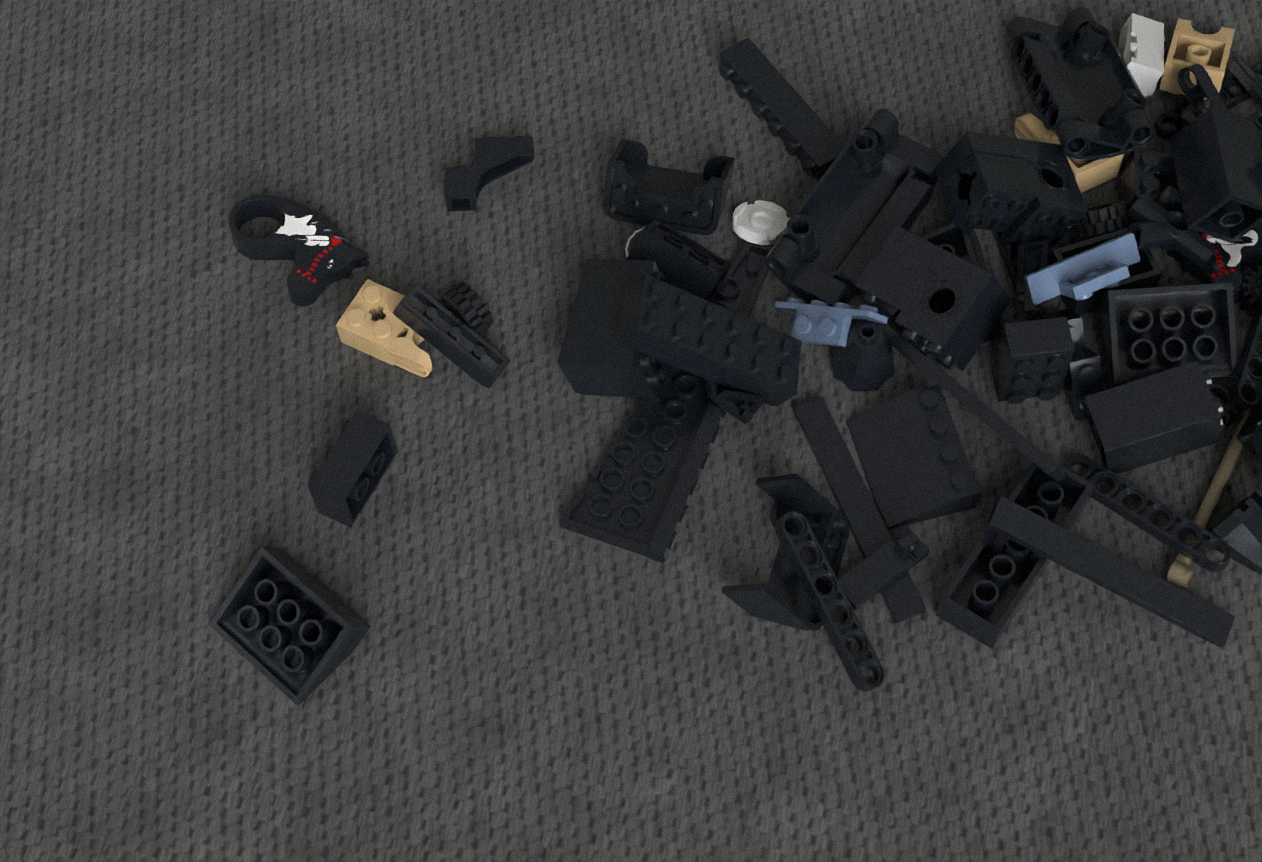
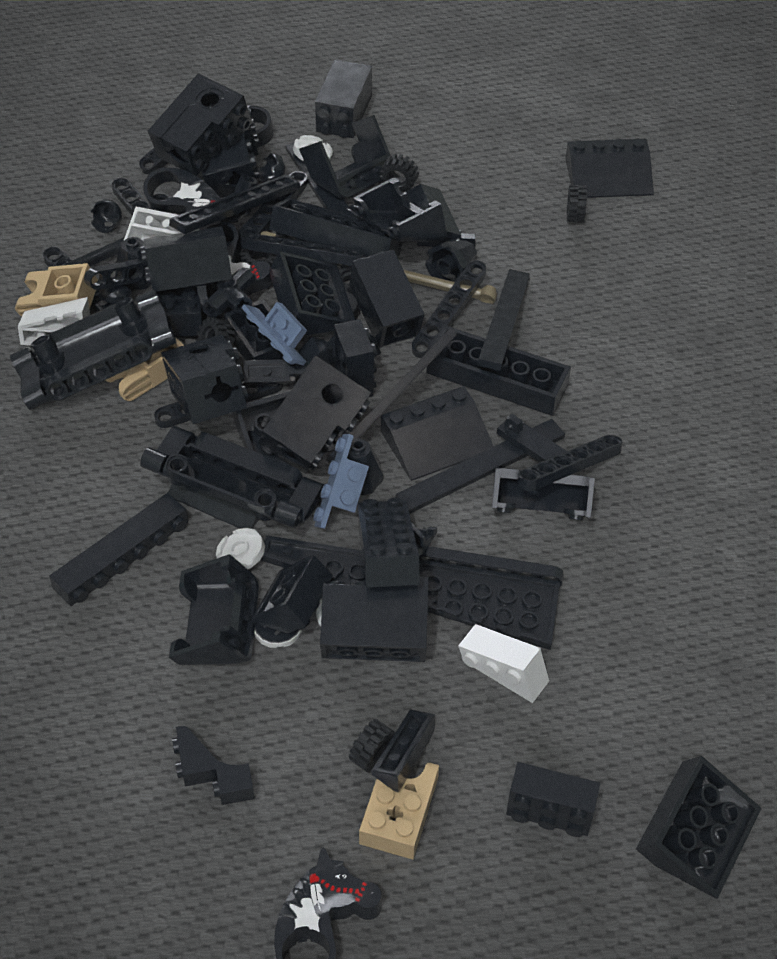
camera: 105 degrees left, 10 degrees down
(542, 461) = (506, 661): none -> white wedge

